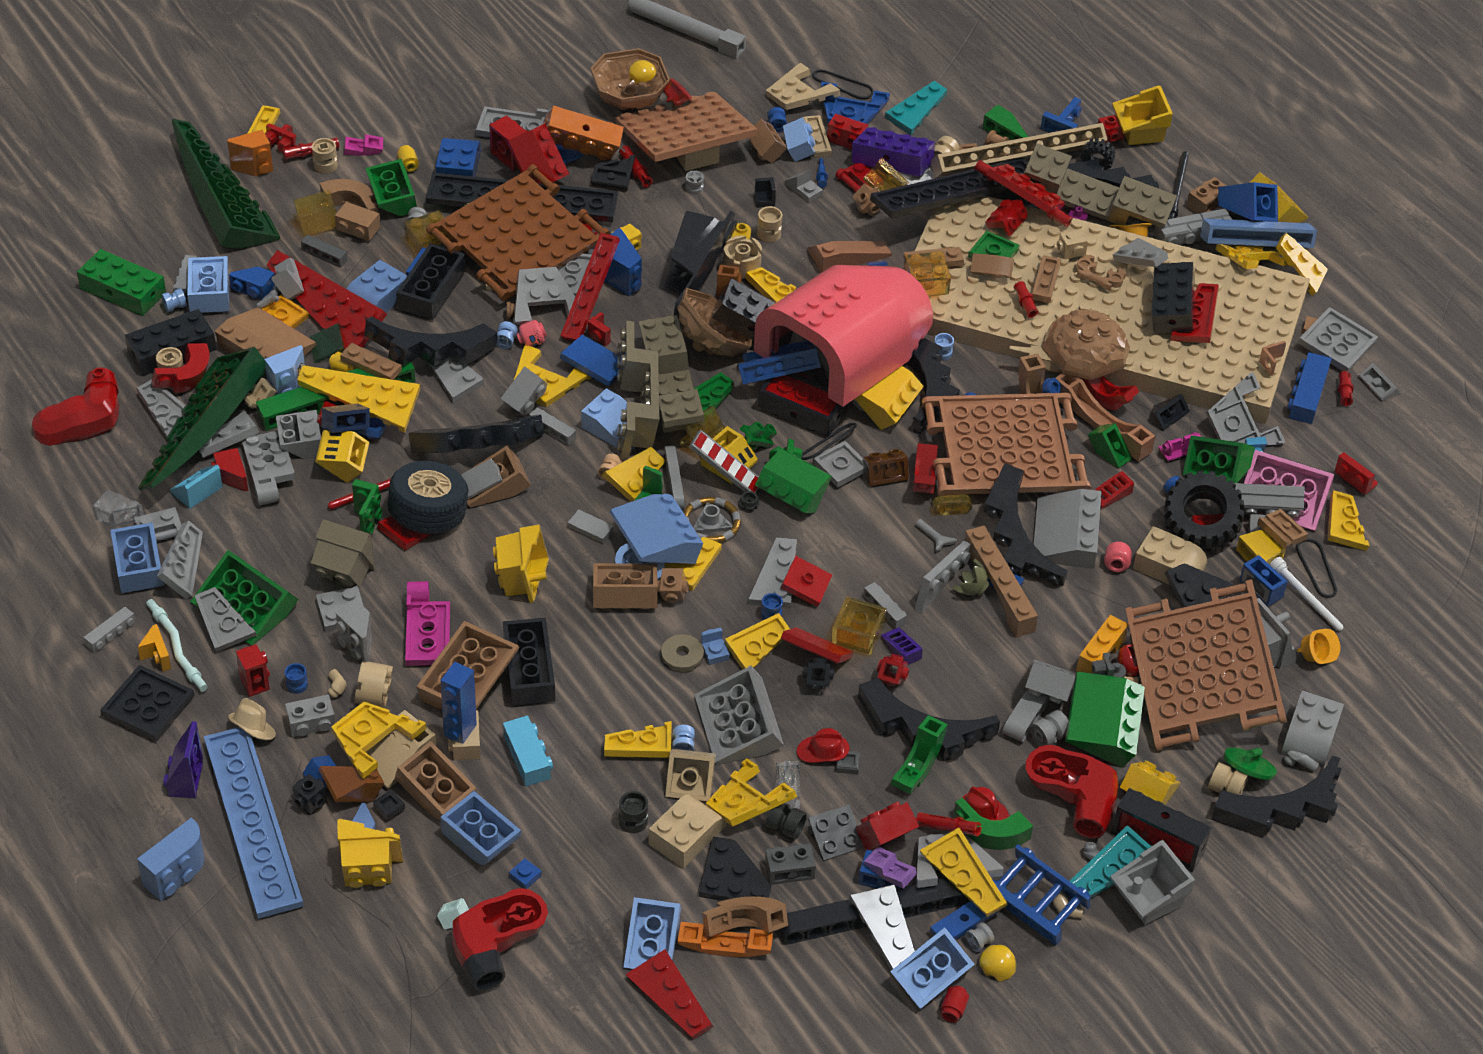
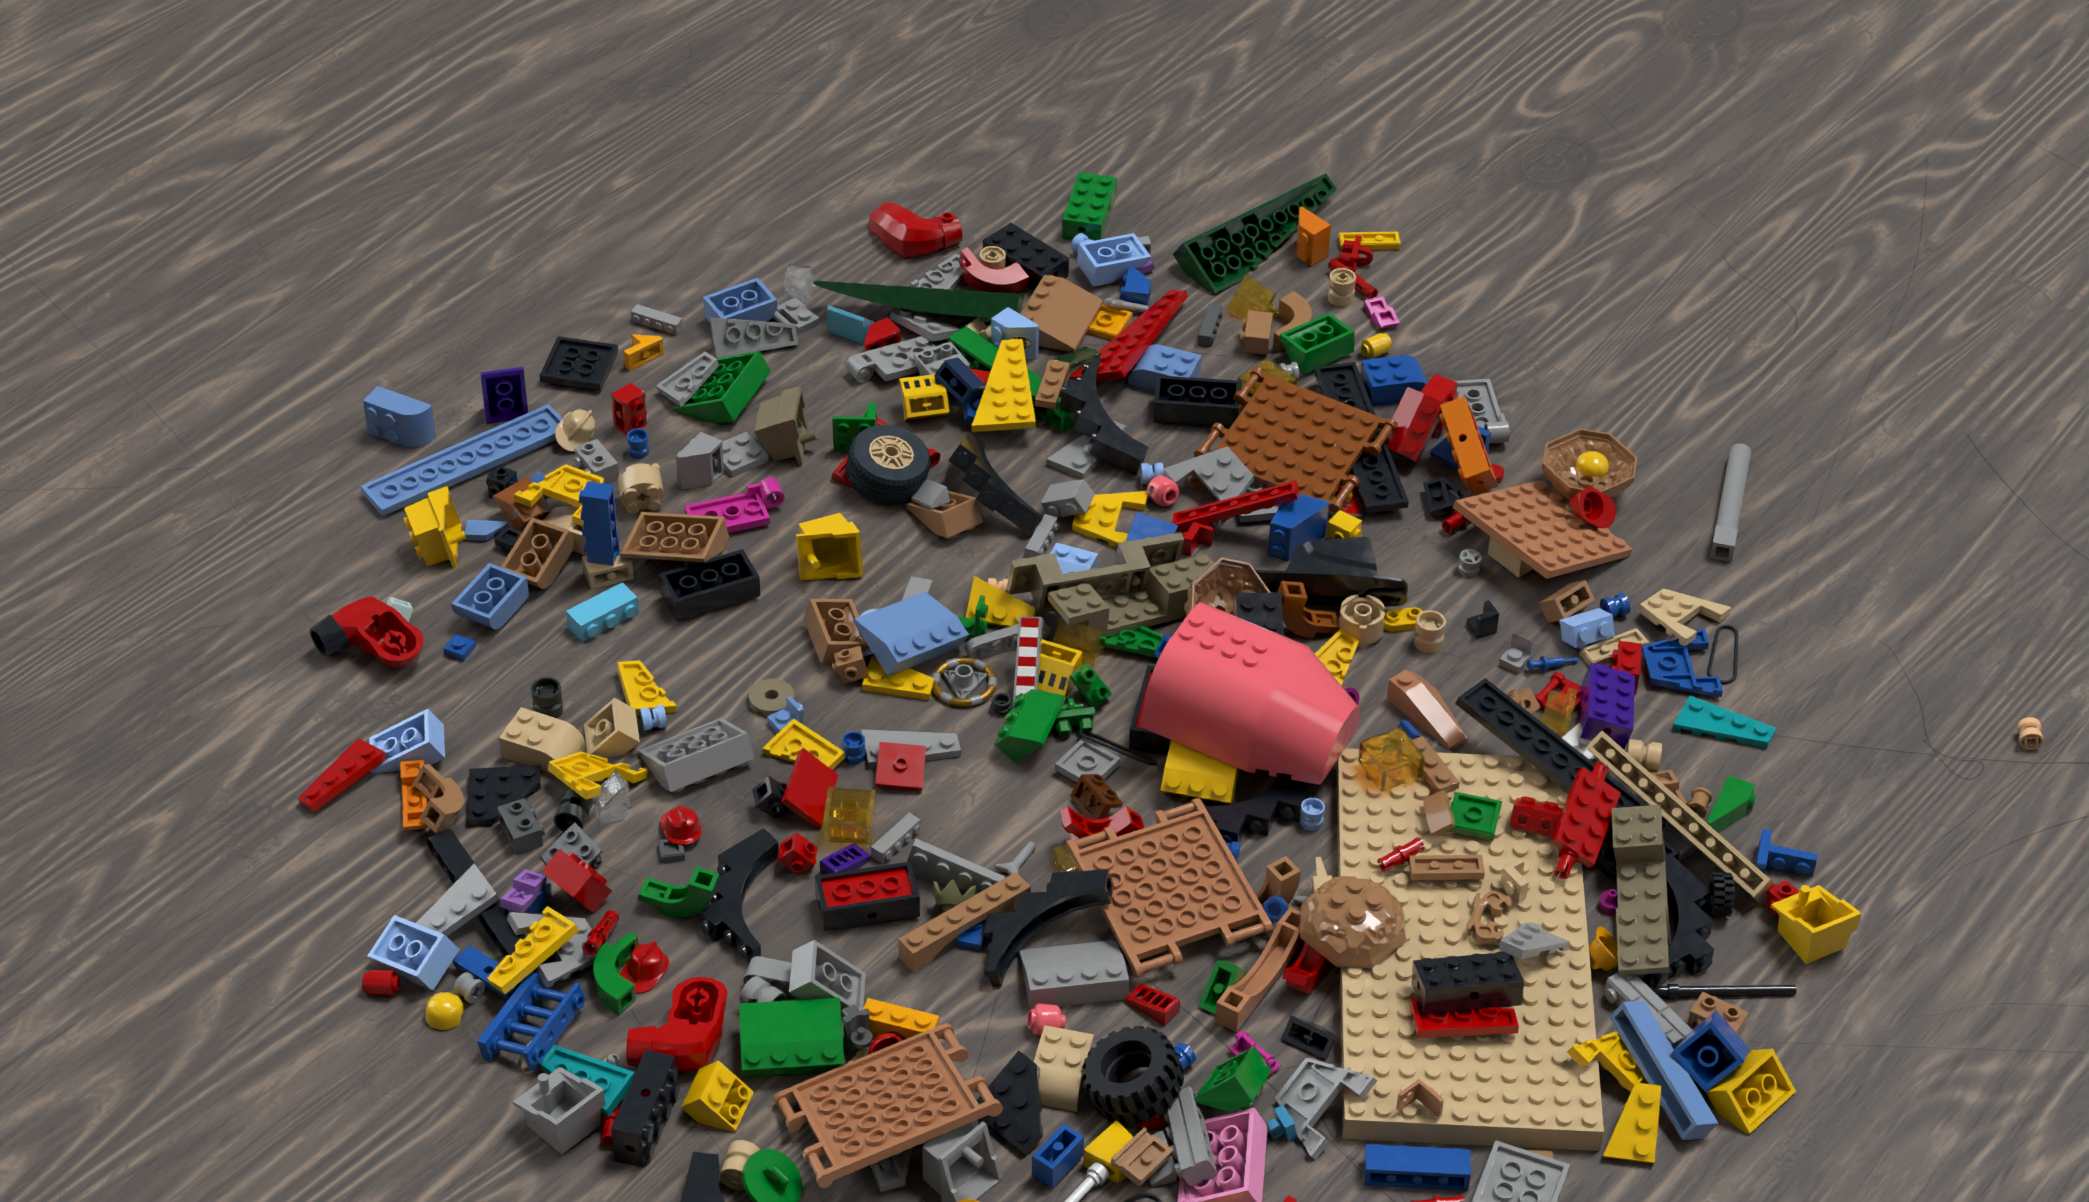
camera: 75 degrees right, 5 degrees down
(191, 672) = (683, 346): light aqua bar -> none
(288, 279) = (1142, 306): light grey slope -> none
(956, 634) = (867, 896): none -> brick

